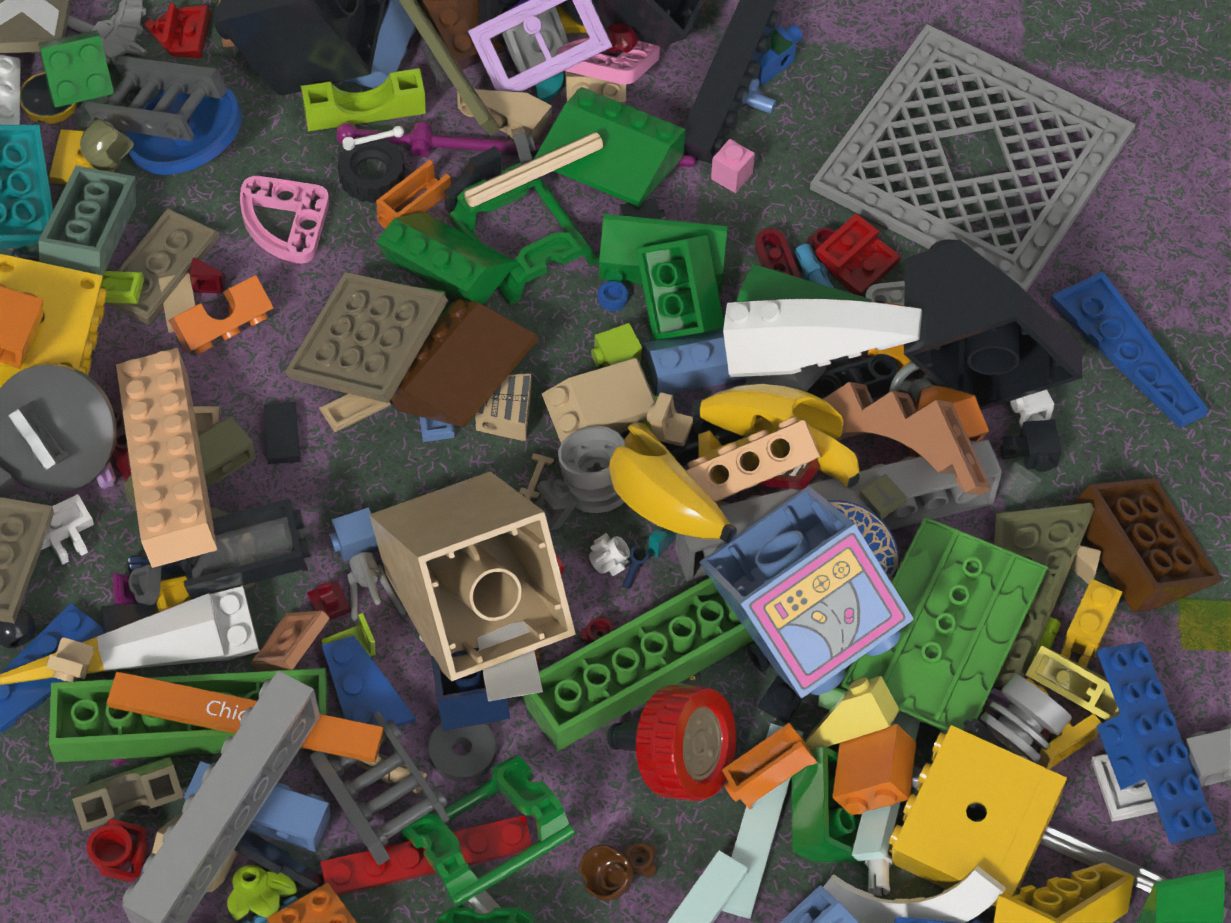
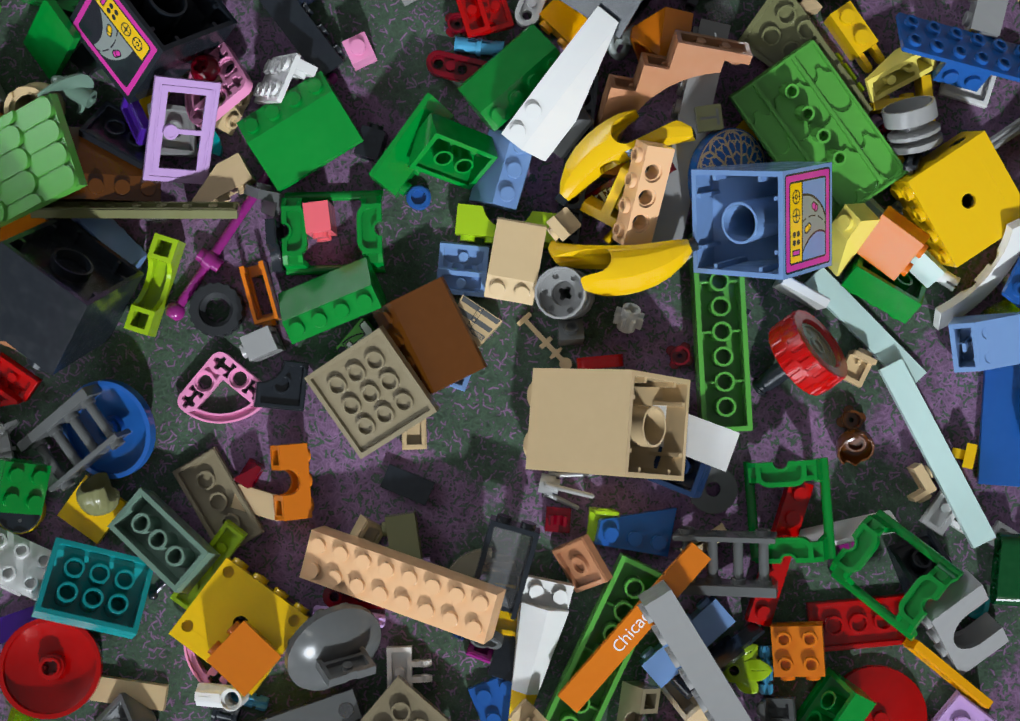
camera: 55 degrees left, 30 degrees up
(318, 265) = (285, 389): none -> black tile
(349, 143) = (191, 317): white hinge -> none
(353, 534) = (519, 479): medium blue brick -> none
(359, 216) = (261, 344): none -> light grey brick
(527, 207) = (320, 220): none -> coral brick
(533, 169) = (296, 214): tan axle -> none
(555, 364) = (464, 267): none -> medium blue slope
(634, 566) = (640, 301): dark blue hand -> none
(655, 92) = (278, 76): none -> white bracket
(706, 829) = (859, 365): none -> tan bracket
(754, 707) = (802, 293): none -> white tile
(767, 765) = (840, 330): orange window -> none

